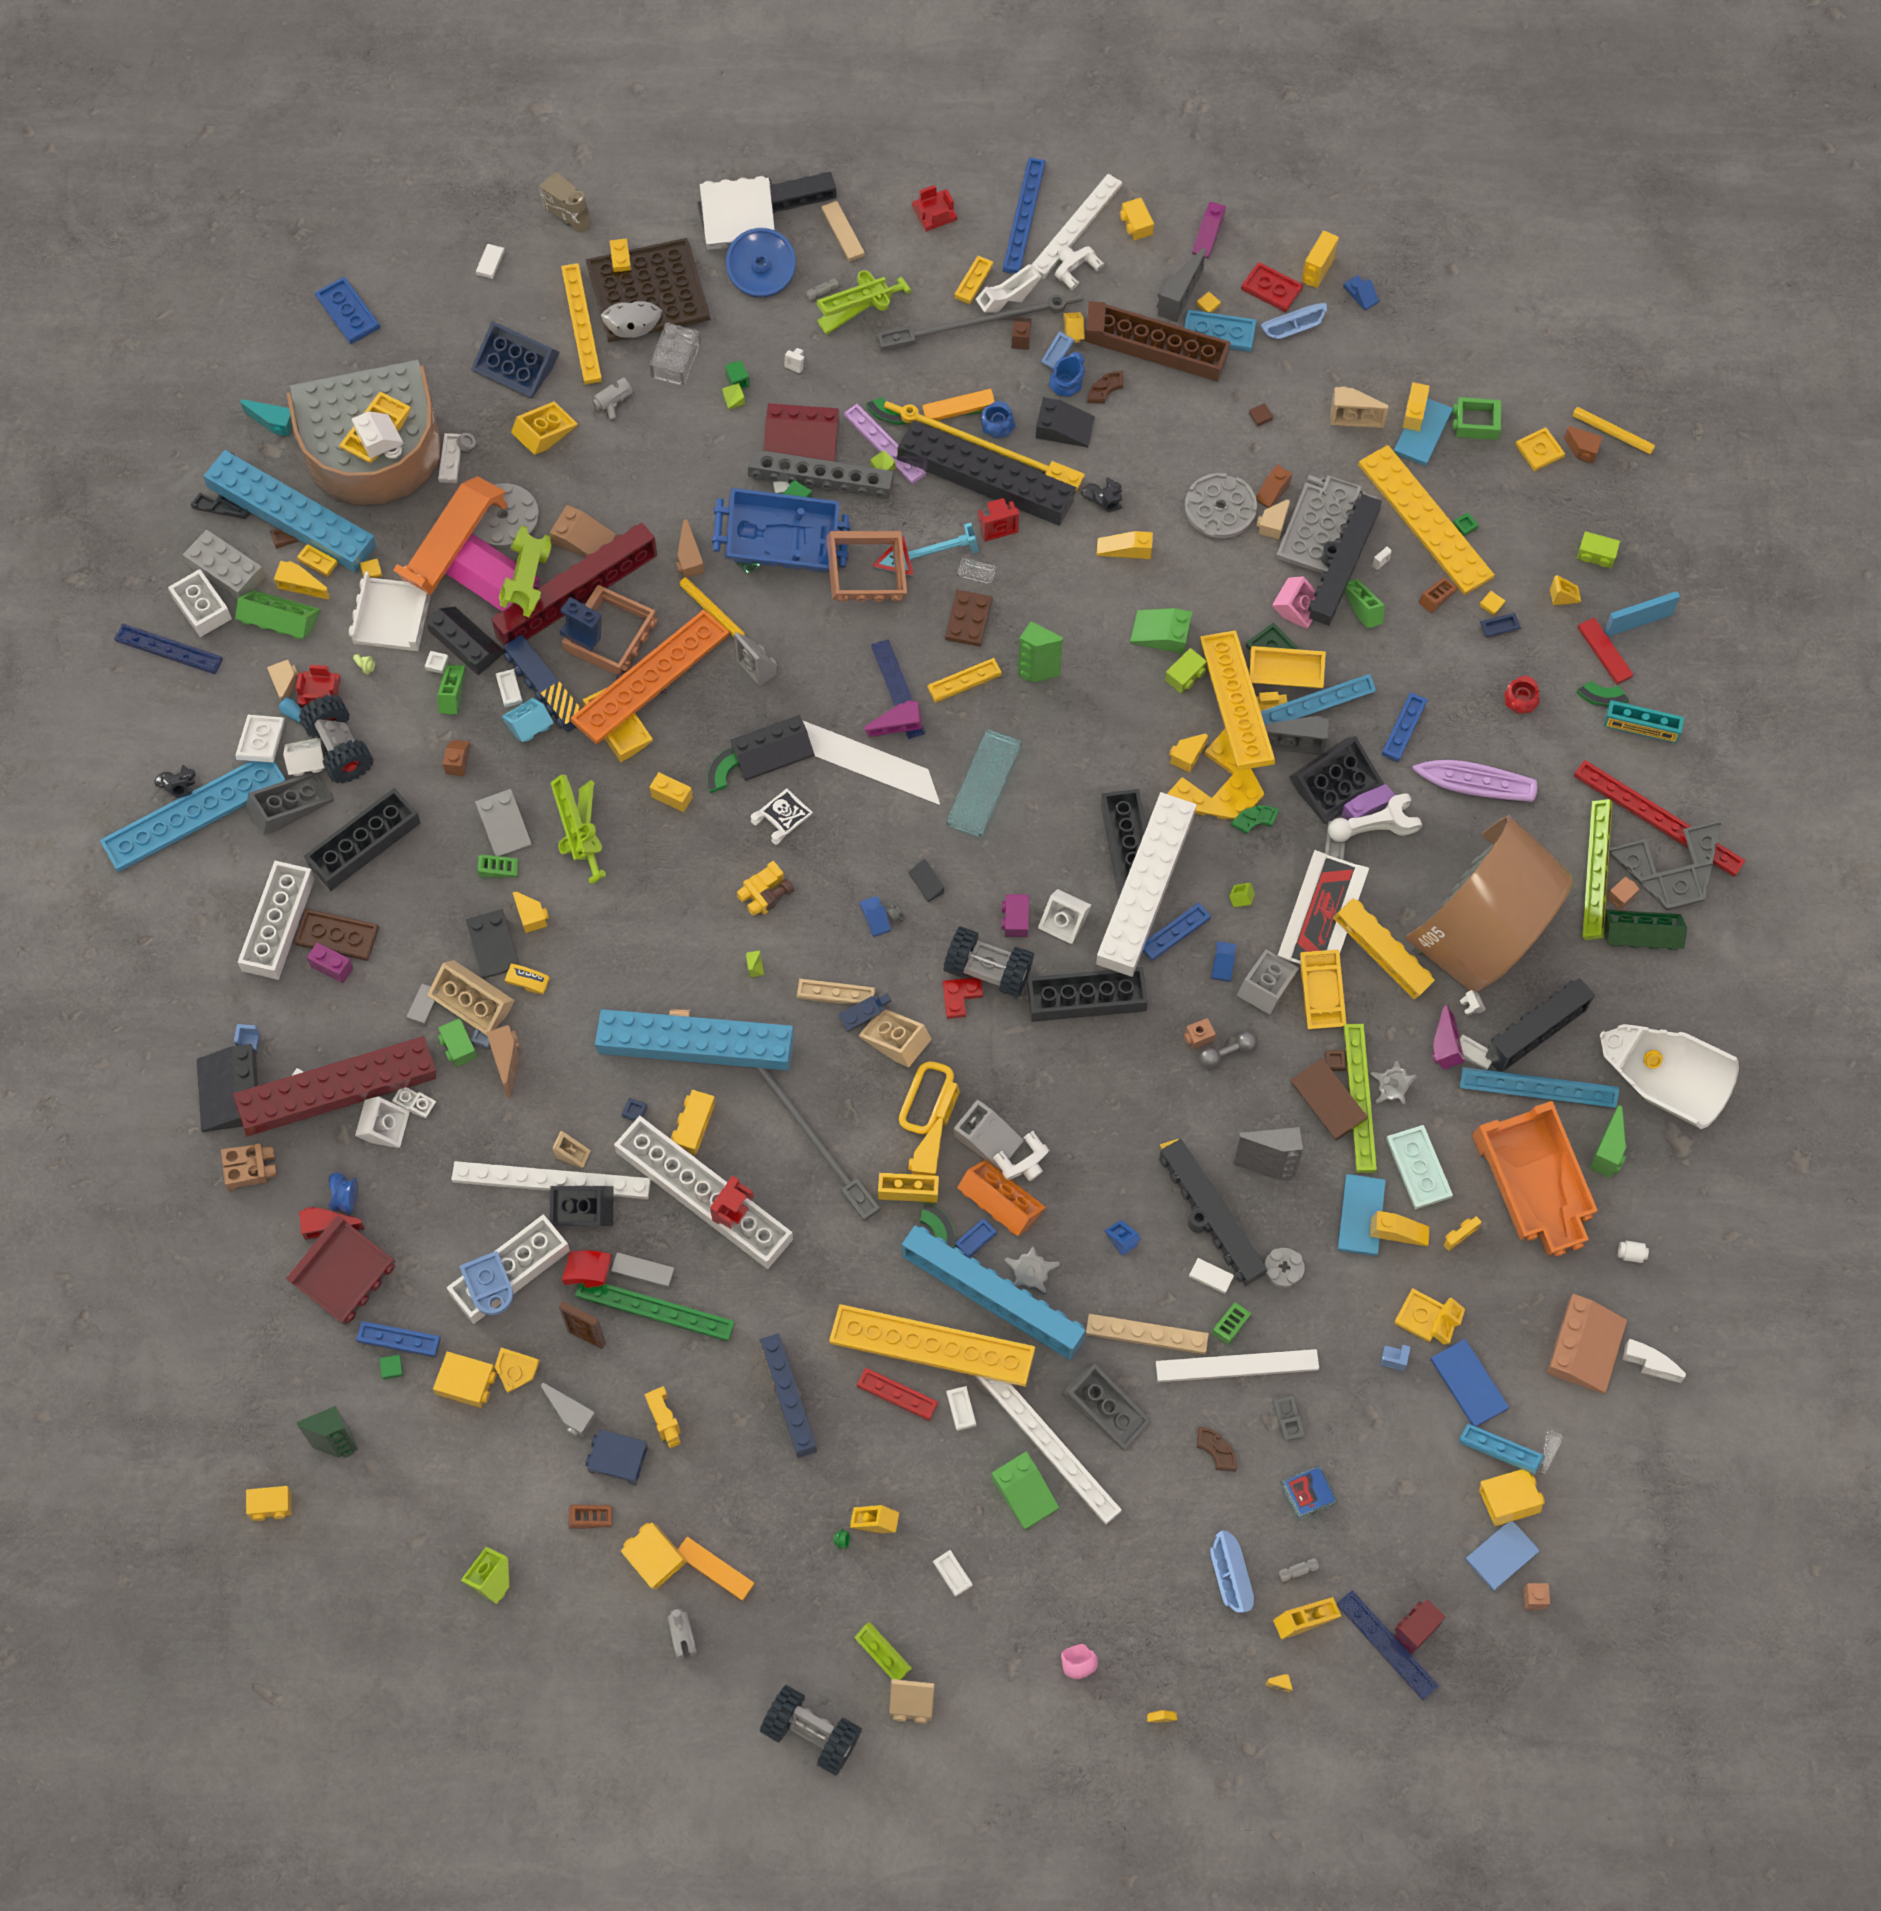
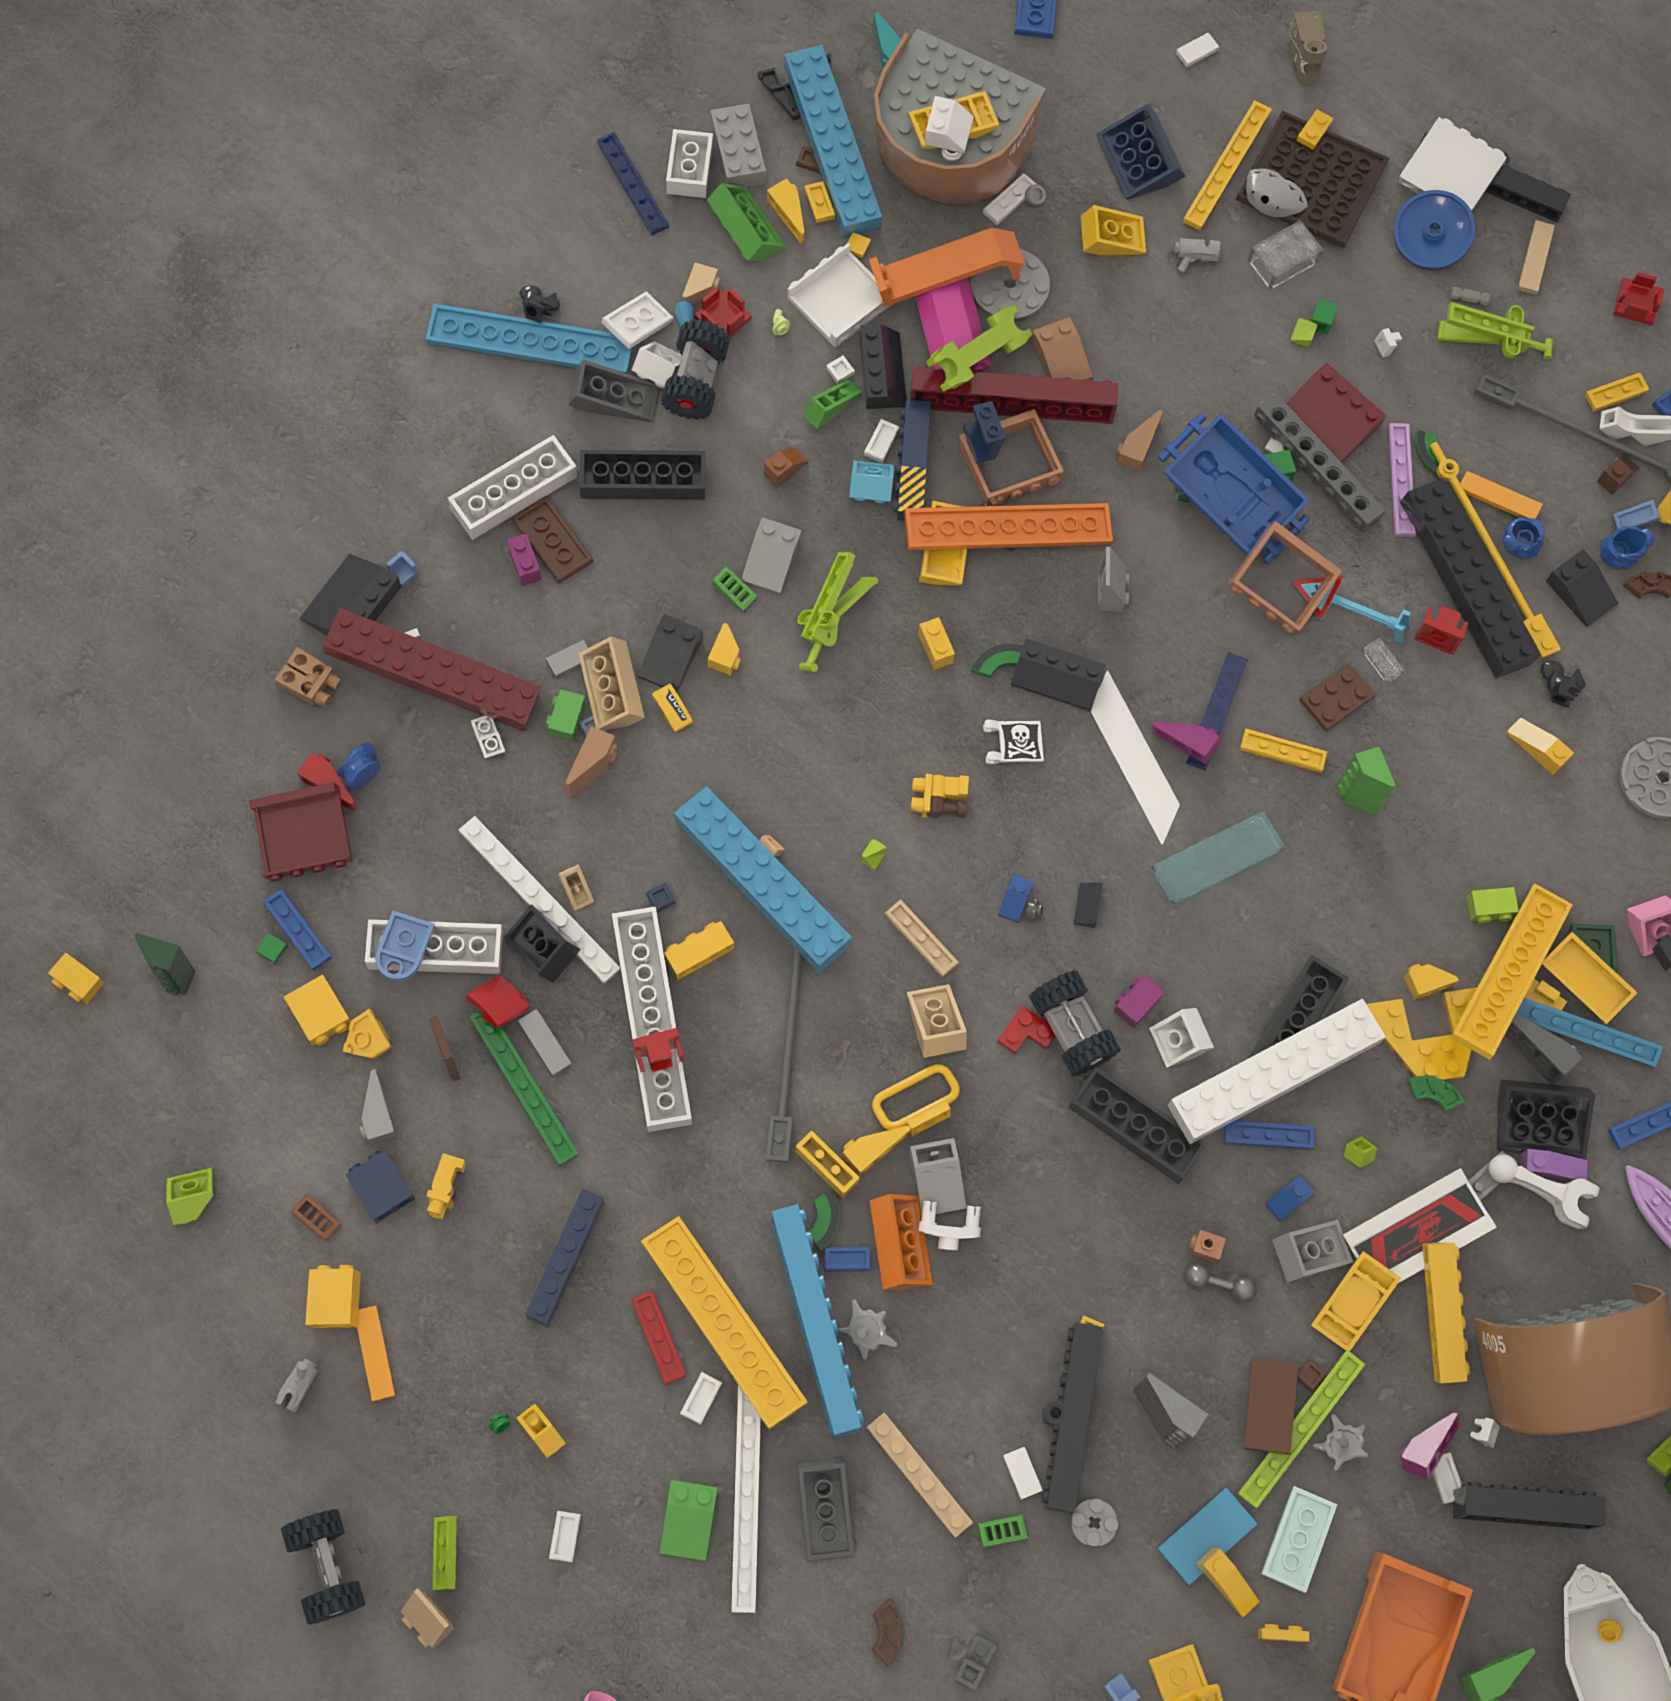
camera: 35 degrees right, 5 degrees up
(382, 1122) = (446, 733): white slope -> none
(709, 606) = (1116, 509): yellow axle -> none
(864, 1011) = (929, 975): dark blue hinge -> none
(883, 461) = (1384, 495): lime slope -> none
(1123, 1237) = (974, 1369): blue slope -> none
(1162, 629) = (1505, 848): bright green slope -> none
(1237, 1365) = (973, 1574): white tile -> none
(1539, 1087) = (1478, 1563): dark azure plate -> none

